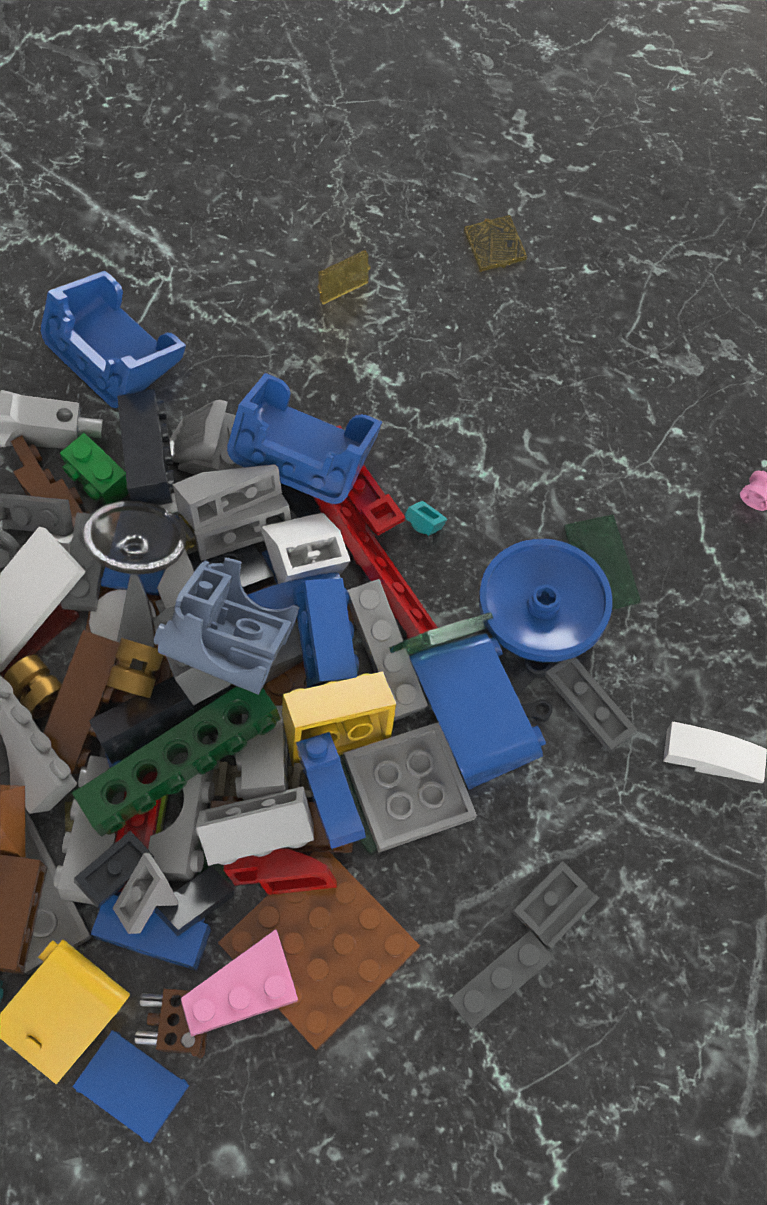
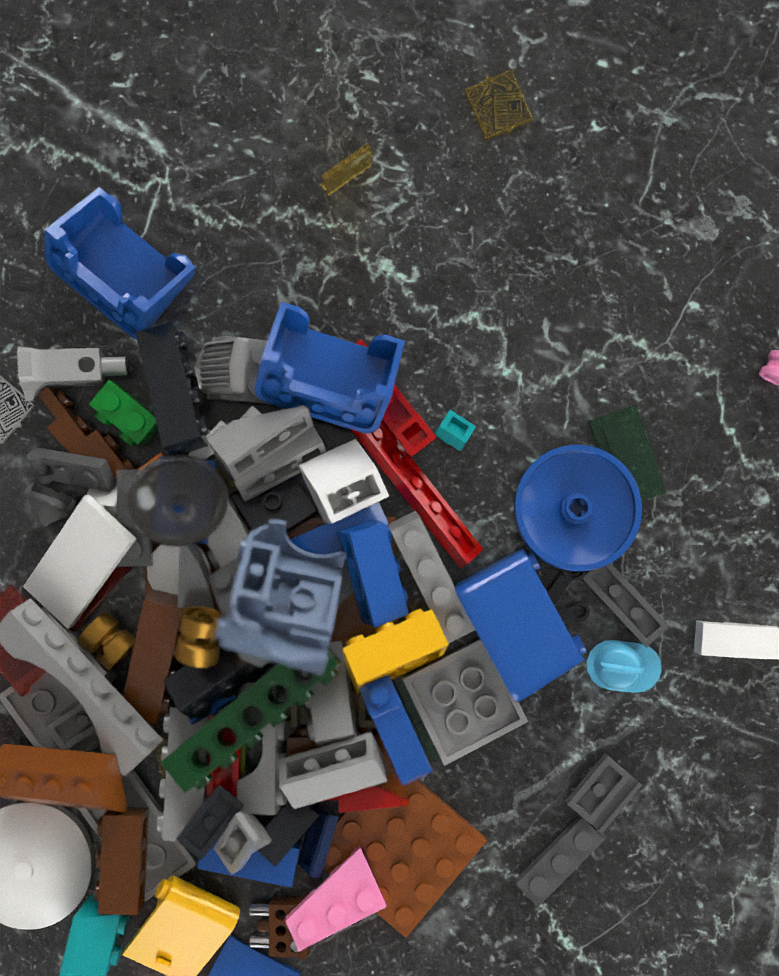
camera: 10 degrees left, 20 degrees up
(229, 924) = (318, 841): none -> dark blue tile
(442, 634) = (483, 564): clear green piece -> none
(587, 774) = (624, 666): none -> medium azure piece

